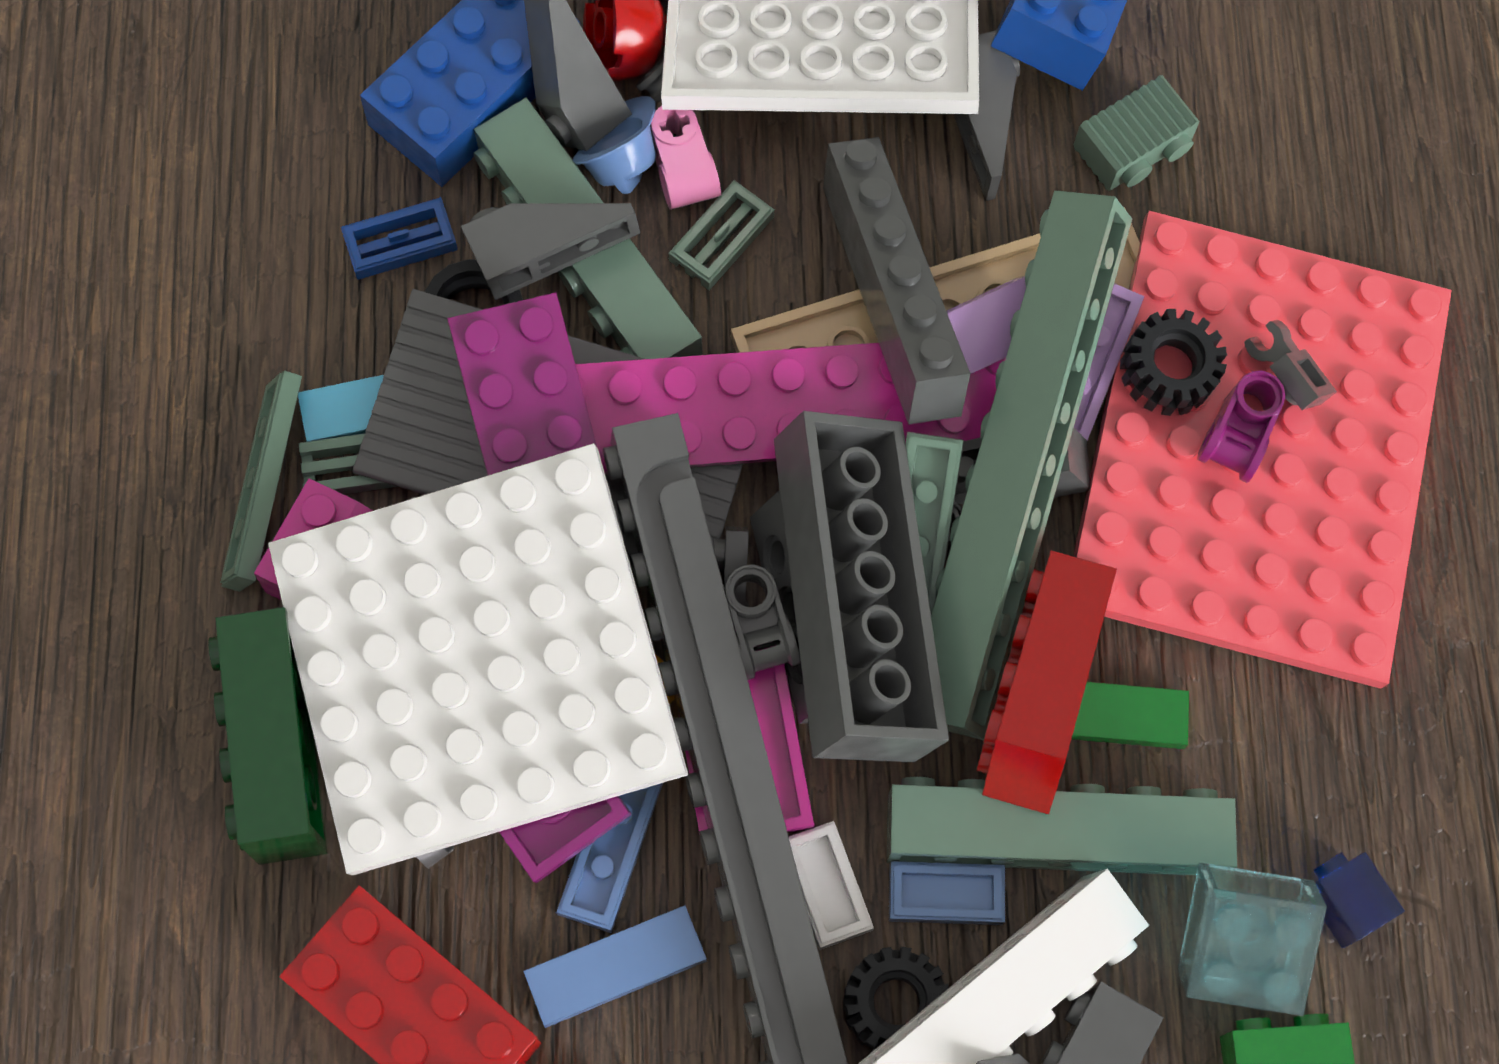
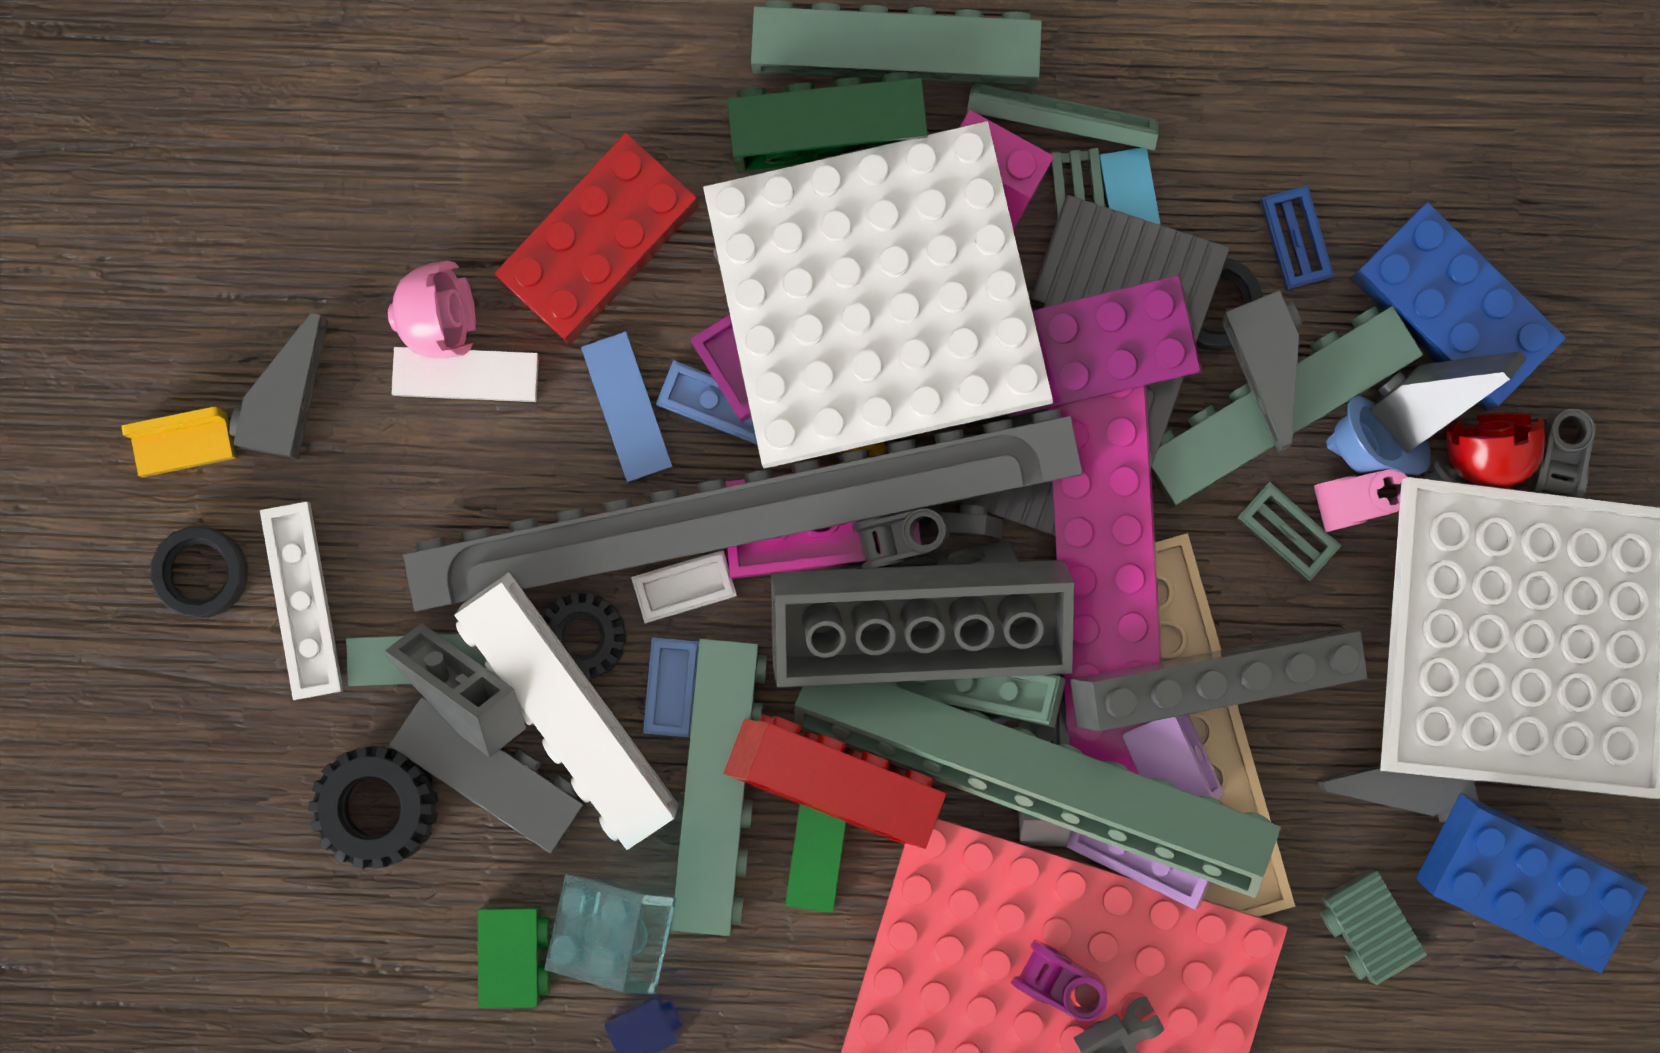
camera: 100 degrees right, 15 degrees up
(174, 675) = (880, 43): none -> sand green brick
(1190, 339) = (1140, 954): black tyre -> none

